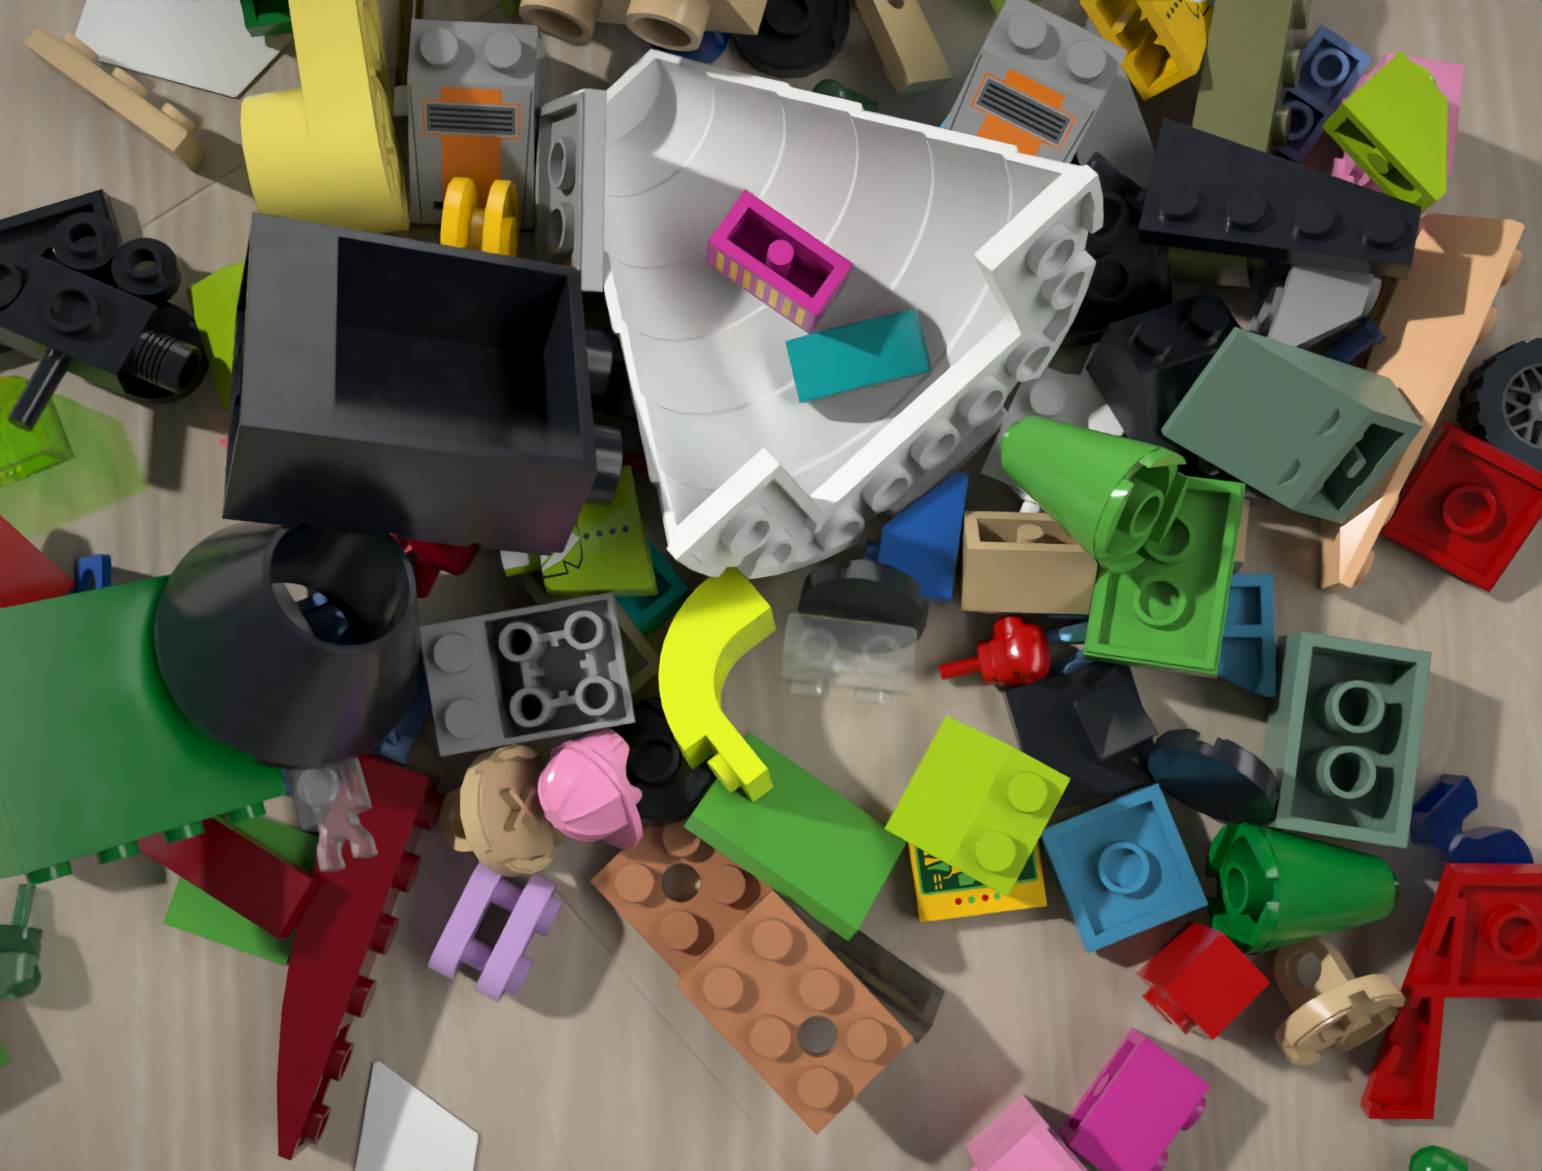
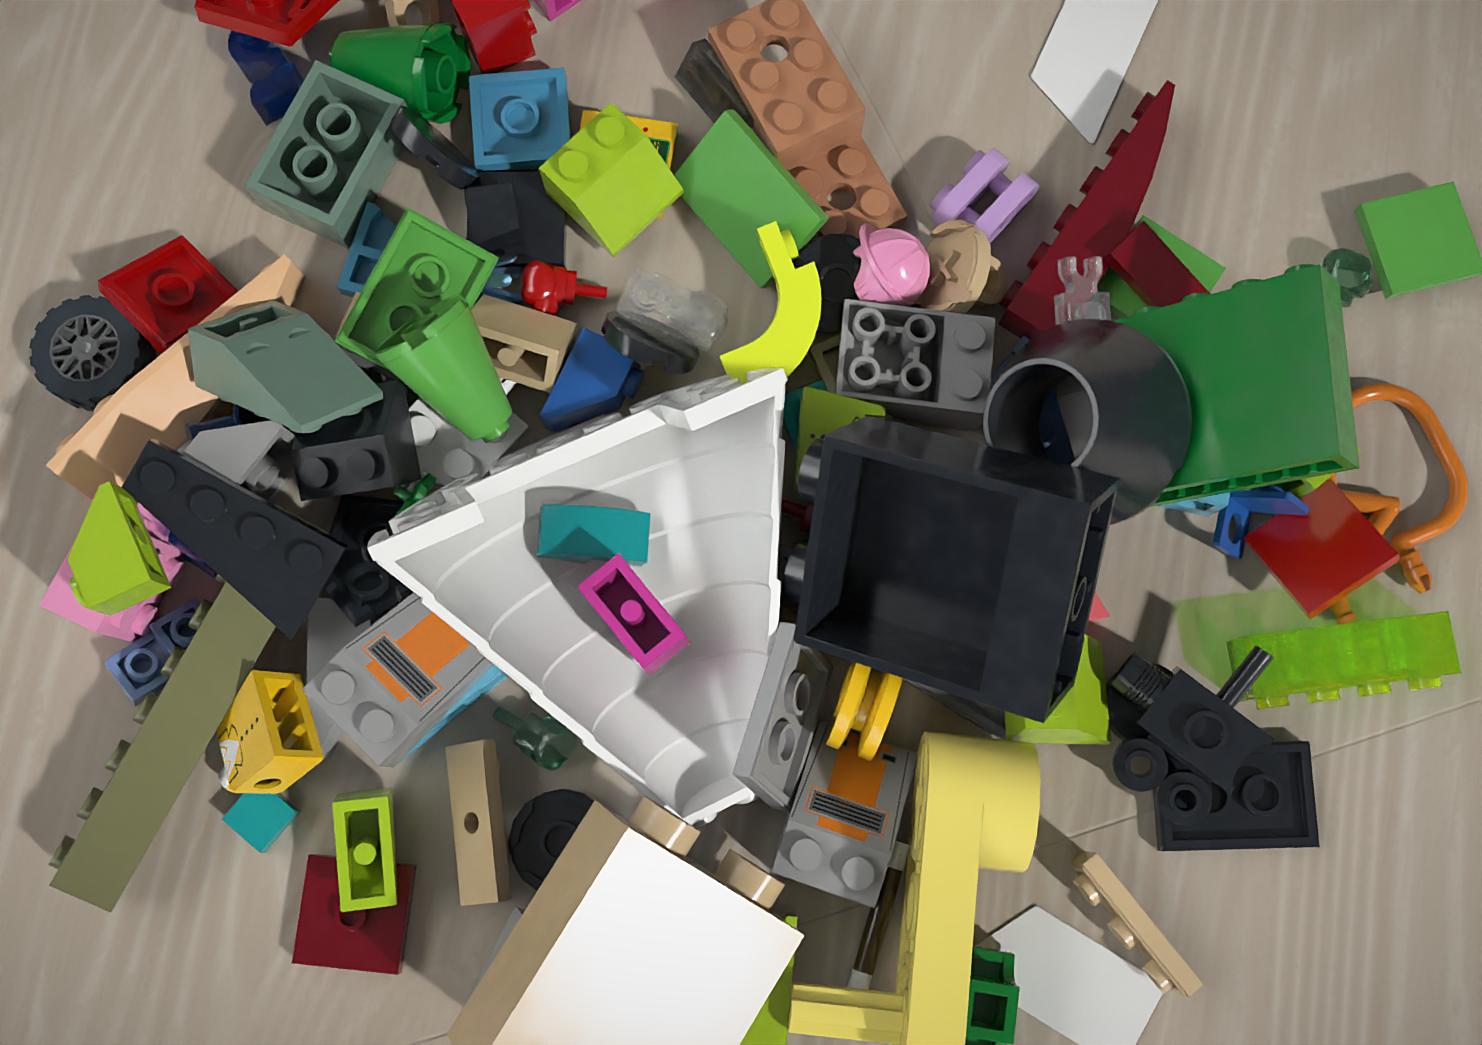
camera: 160 degrees left, 5 degrees down
(1082, 333) = (420, 491): none -> green plant

